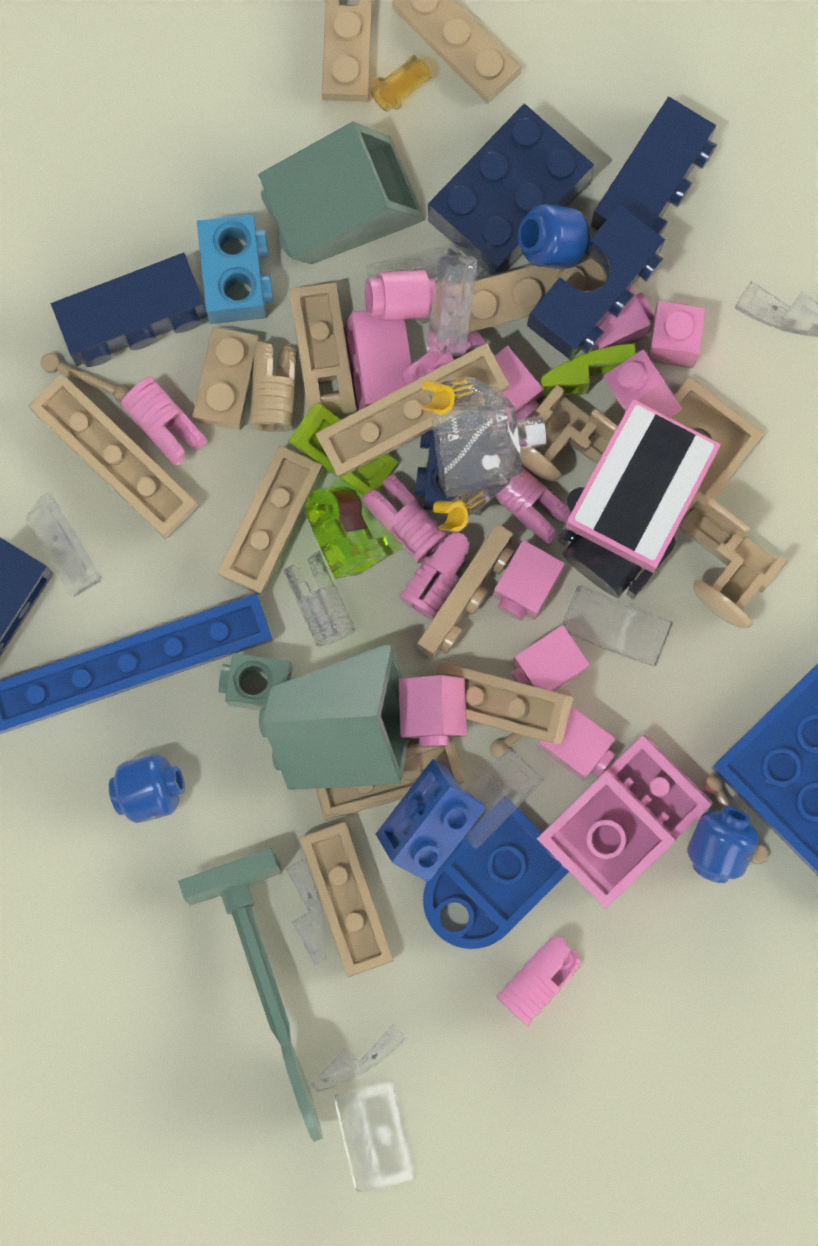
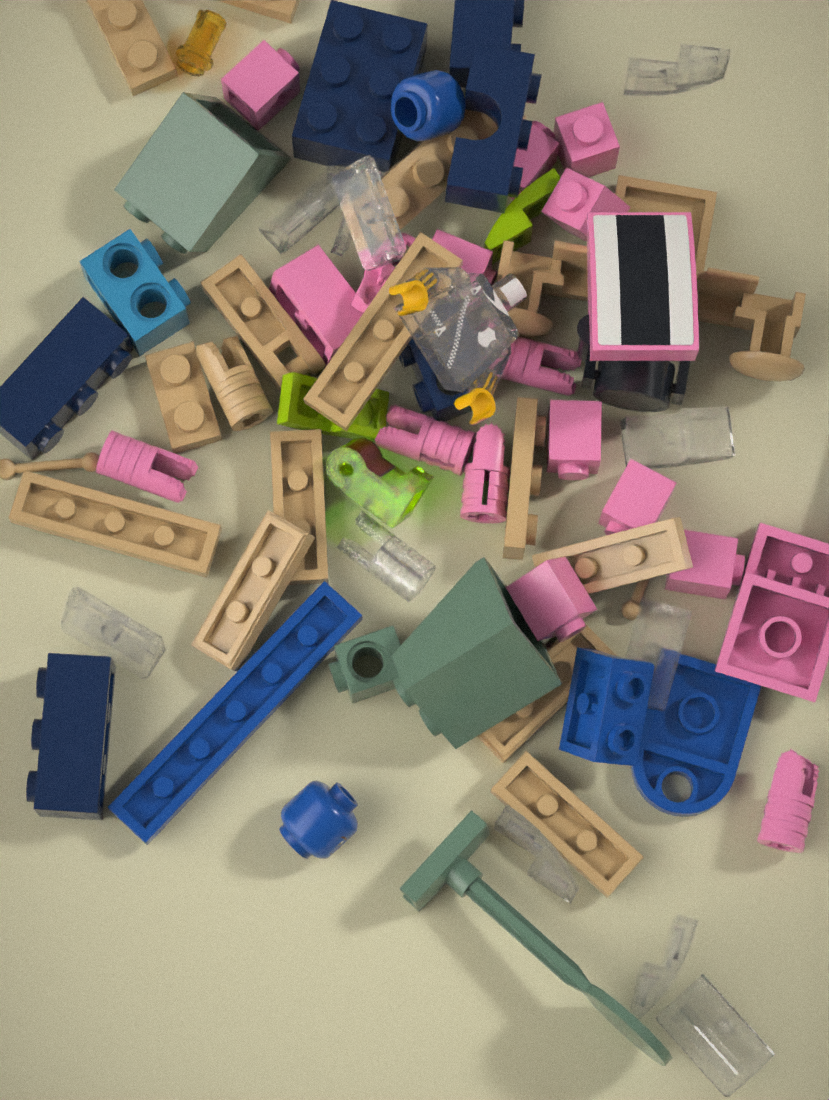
camera: 30 degrees left, 5 degrees down
(193, 571) = (252, 591): none -> tan tile
(399, 295) = (311, 232): bright pink brick -> none
(432, 144) = (262, 84): none -> bright pink brick

